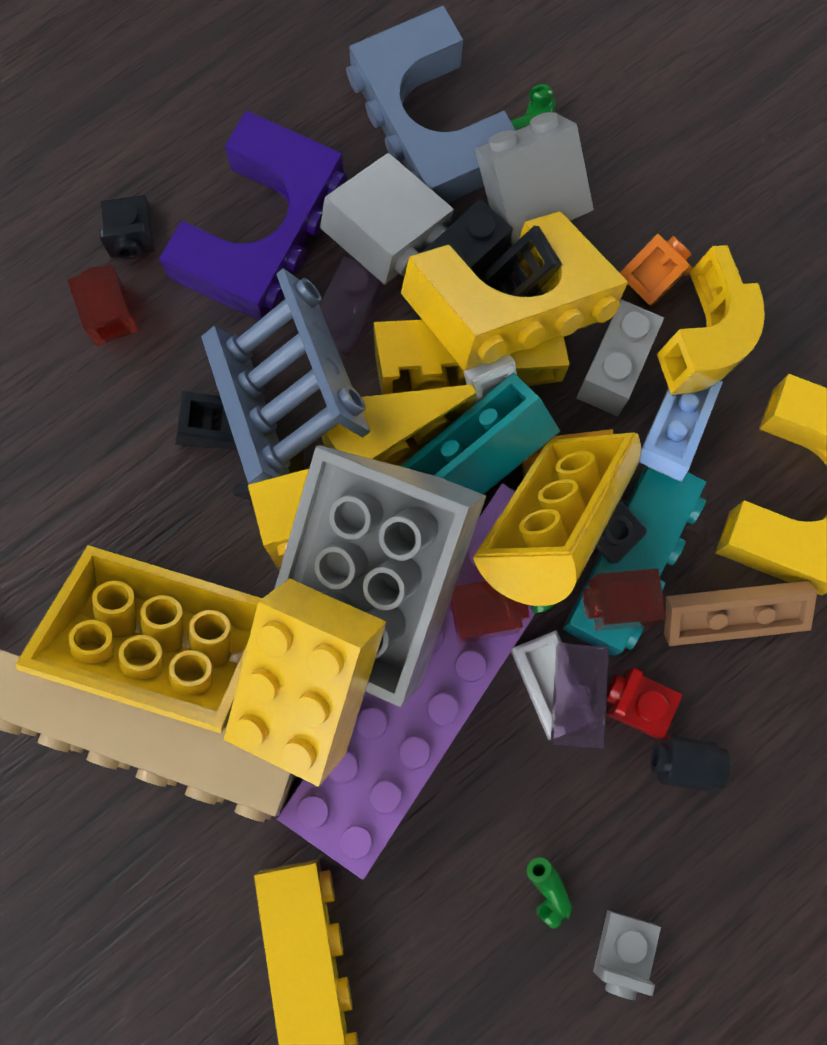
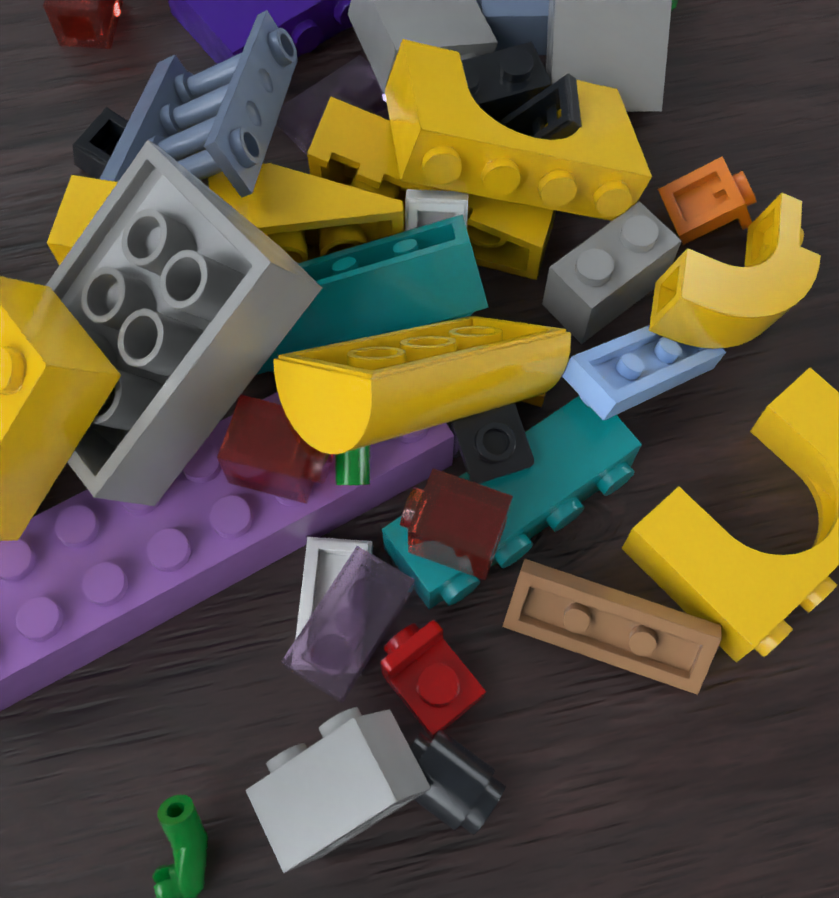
camera: 30 degrees right, 10 degrees down
(631, 805) = (335, 786): none -> light grey brick

